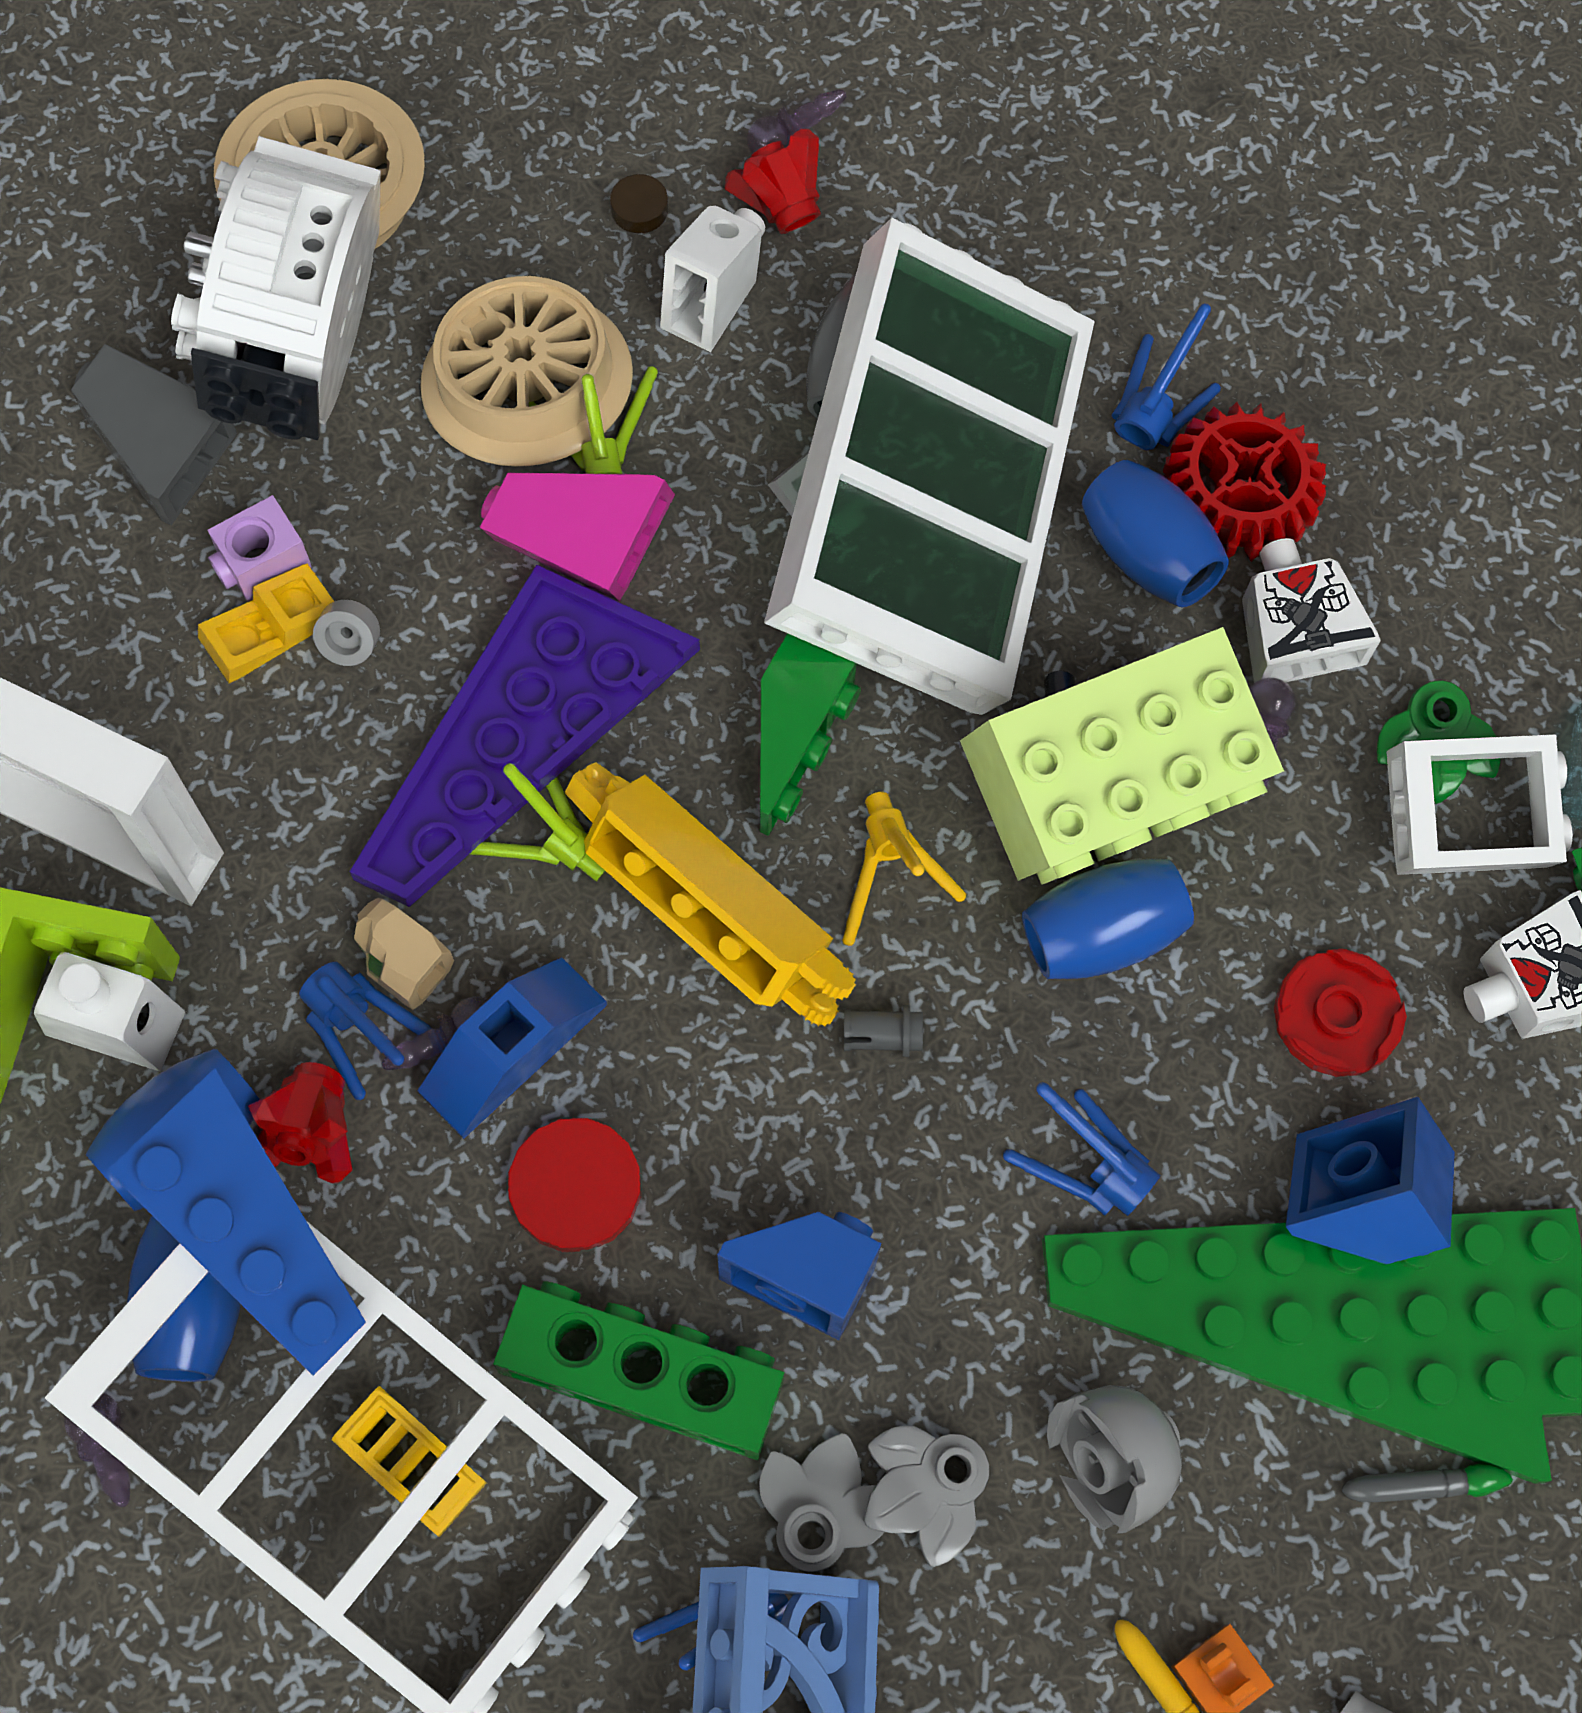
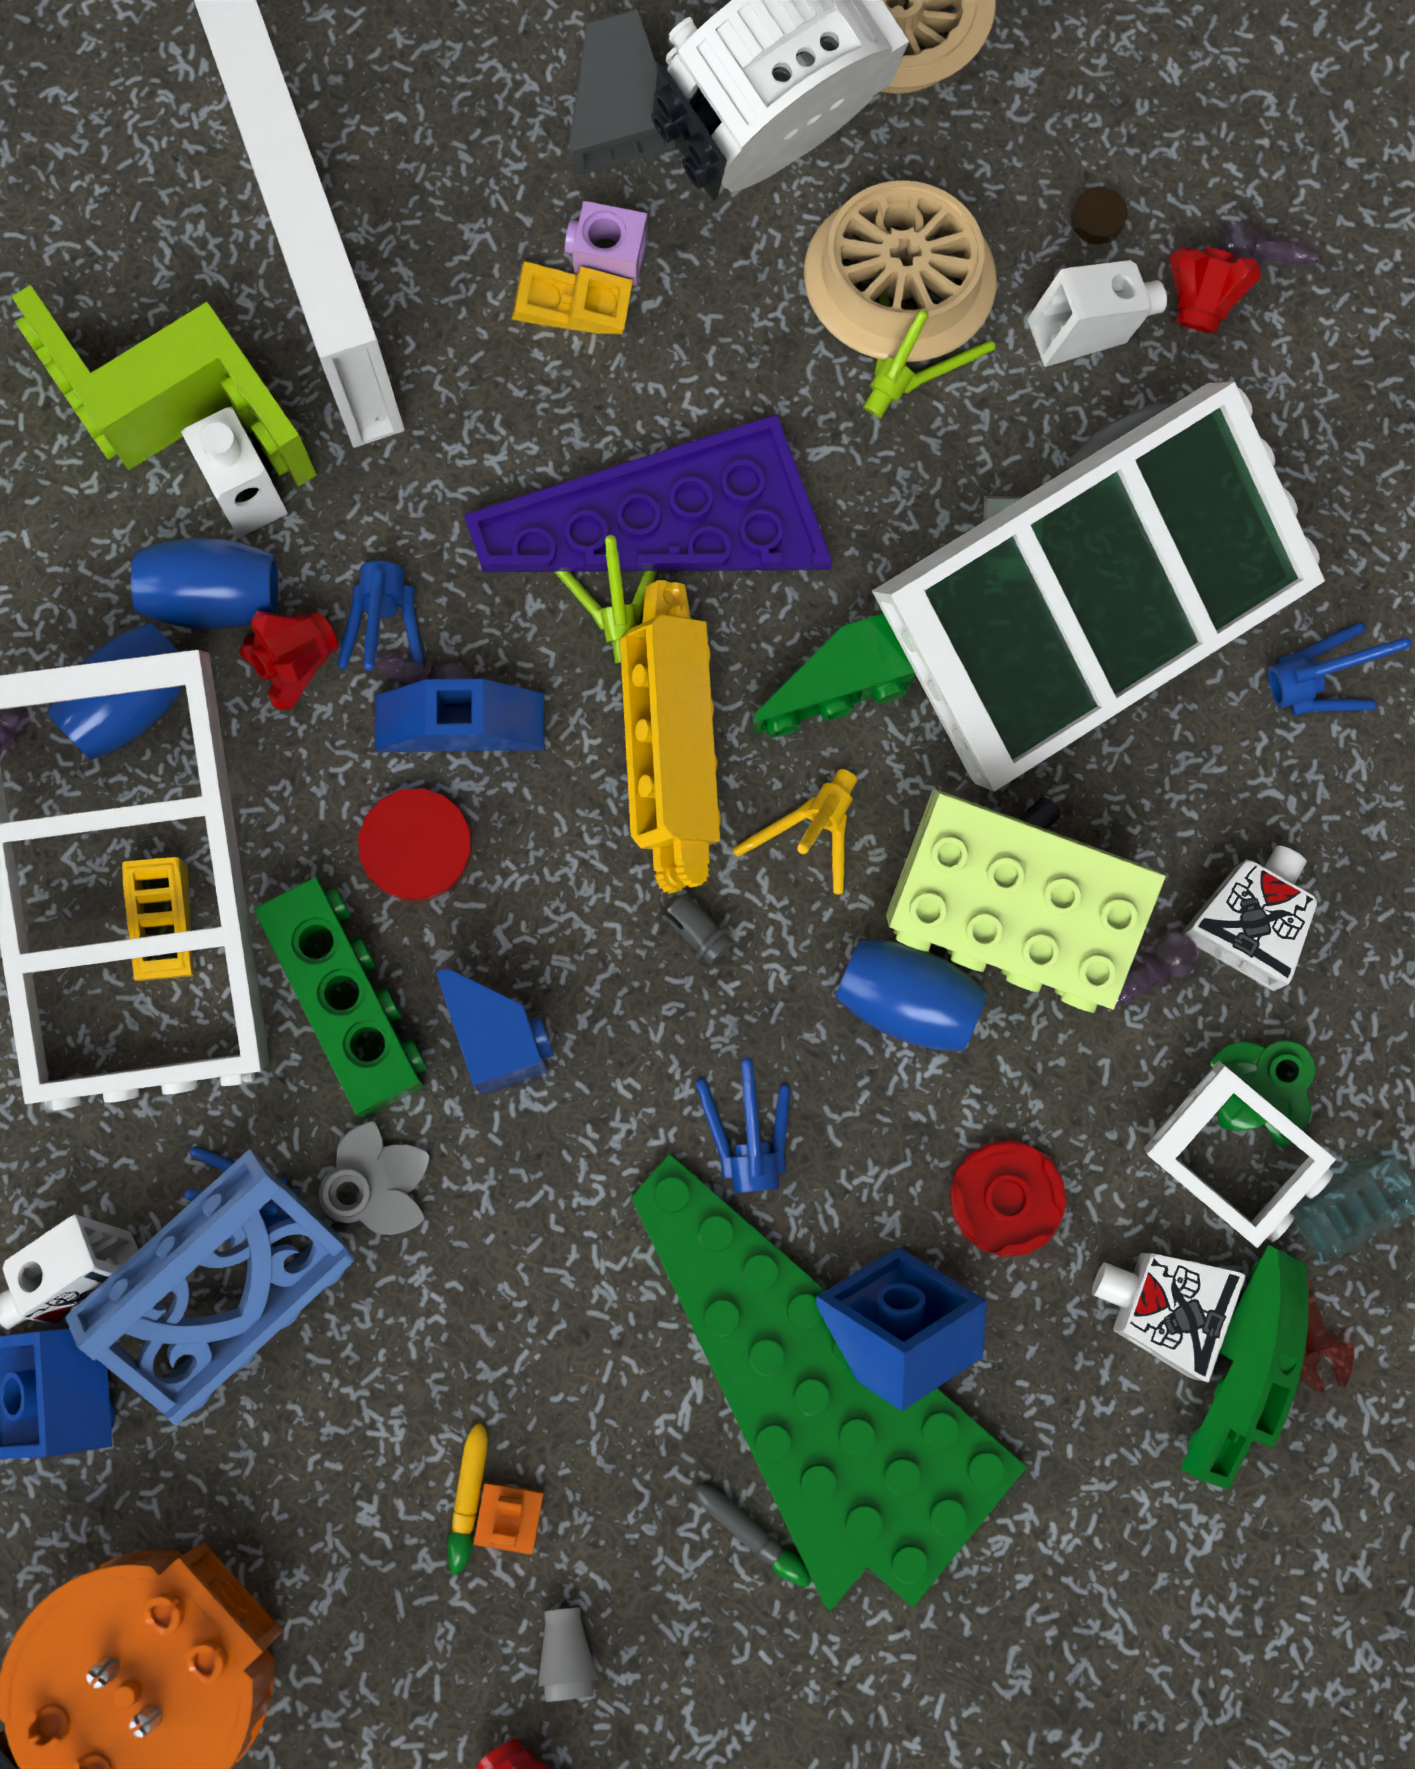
camera: 40 degrees right, 10 degrees up
(231, 1211) = (164, 670): blue wing -> none
(346, 632) = (612, 351): light grey tile -> none
(401, 953) = (446, 598): tan rock -> none
(579, 522) = (829, 413): dark pink slope -> none
(920, 1496) = (433, 1230): light grey plate -> none
(1120, 1453) = (577, 1329): light grey cylinder -> none
(1155, 533) = (1212, 768): blue piece -> none
(1245, 448) = (1322, 745): red gear -> none

